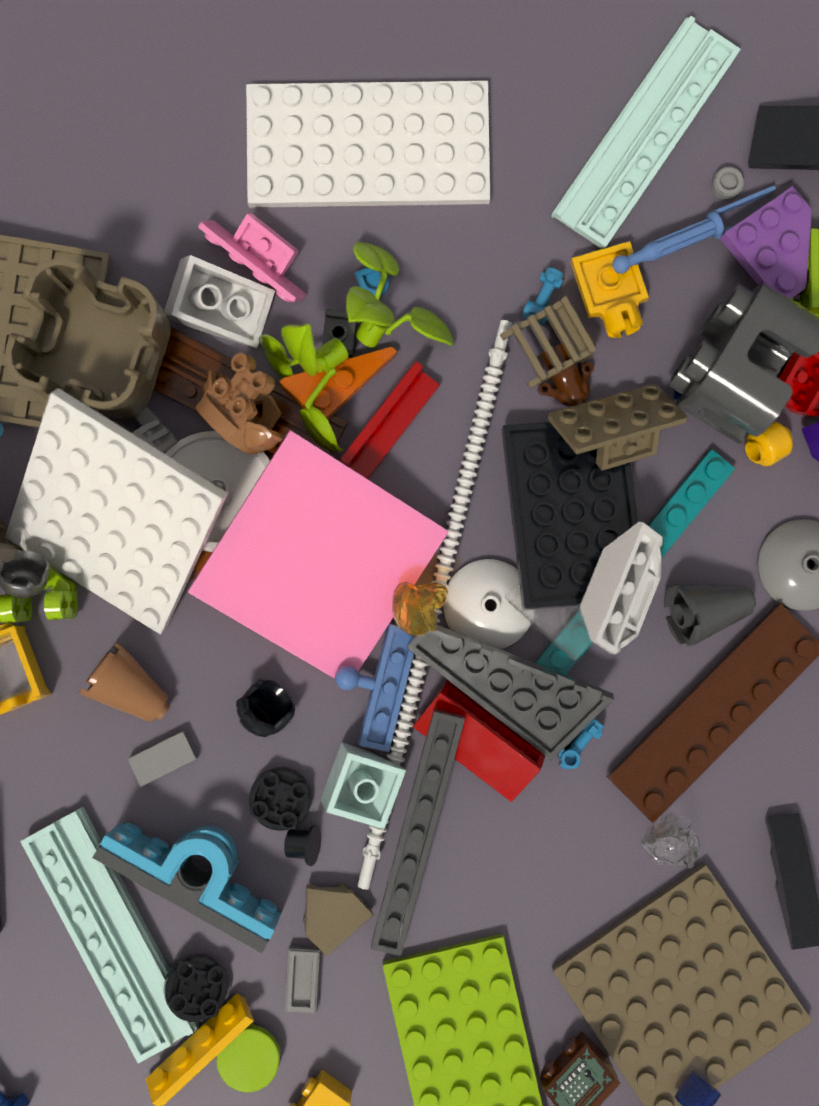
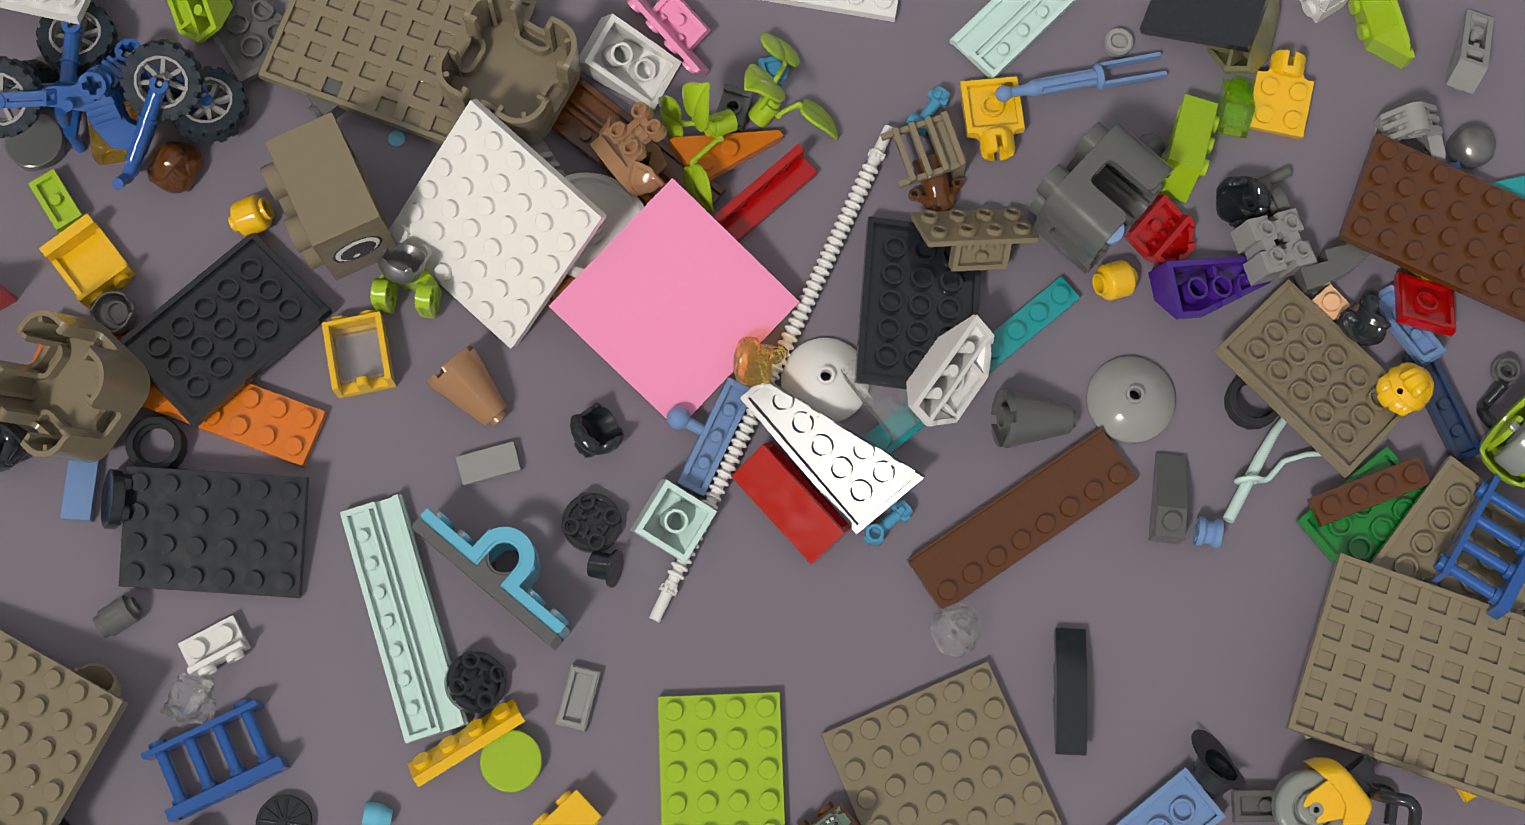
camera: 15 degrees right, 10 degrees down
(333, 915) = (619, 640): dark tan slope -> none
(417, 831) = (715, 573): dark grey plate -> none
(775, 243) = (1149, 100): medium lavender plate -> none

